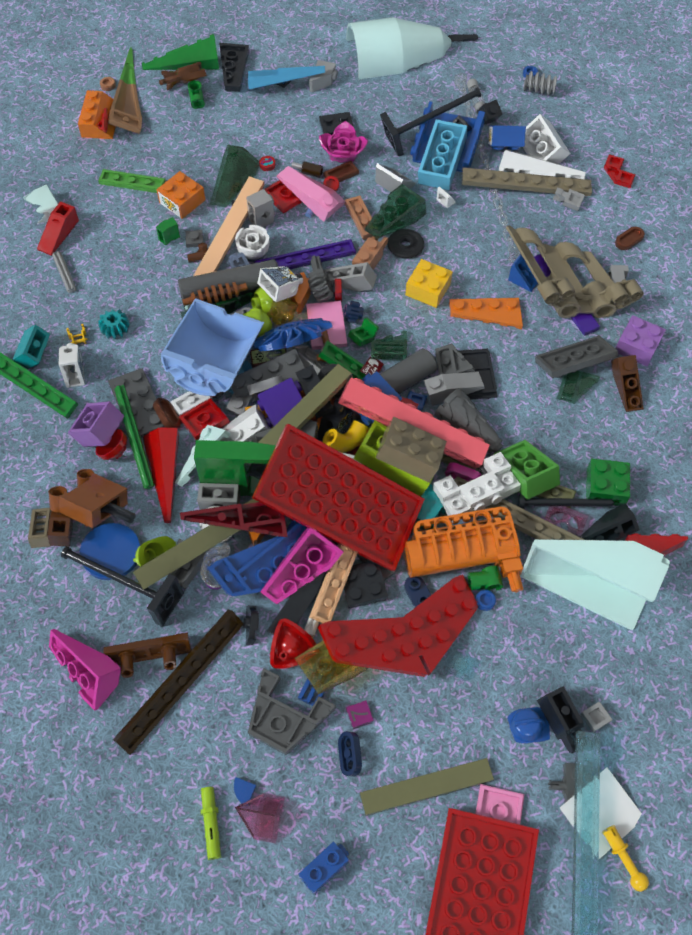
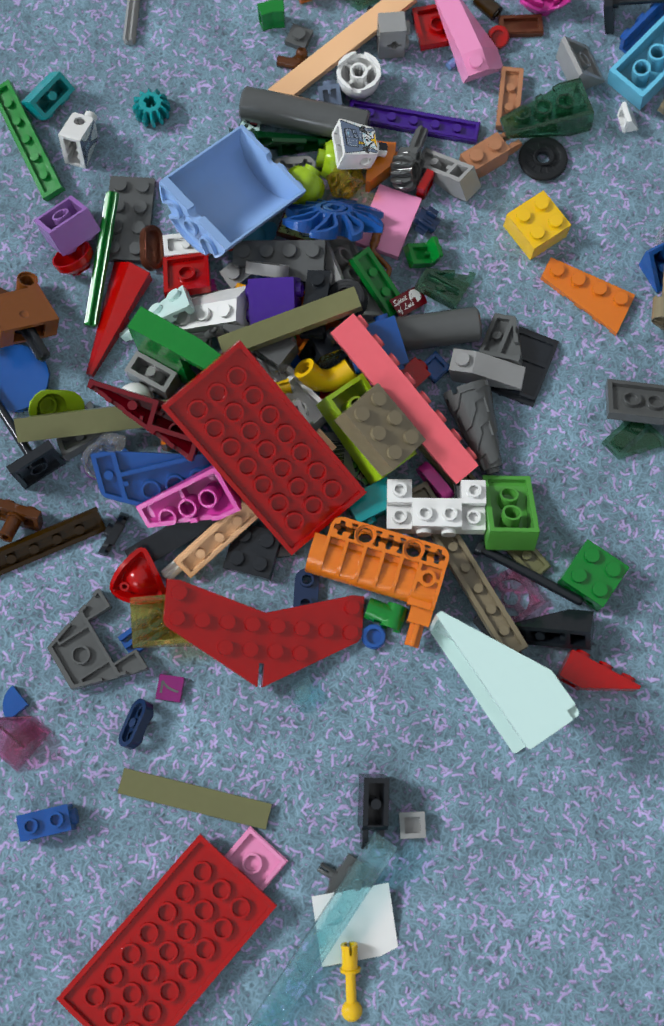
camera: 30 degrees right, 15 degrees up
(83, 333) = (115, 102): yellow piece -> none
(216, 293) = (276, 125): dark orange piece -> none
(529, 725) = (337, 794): blue piece -> none

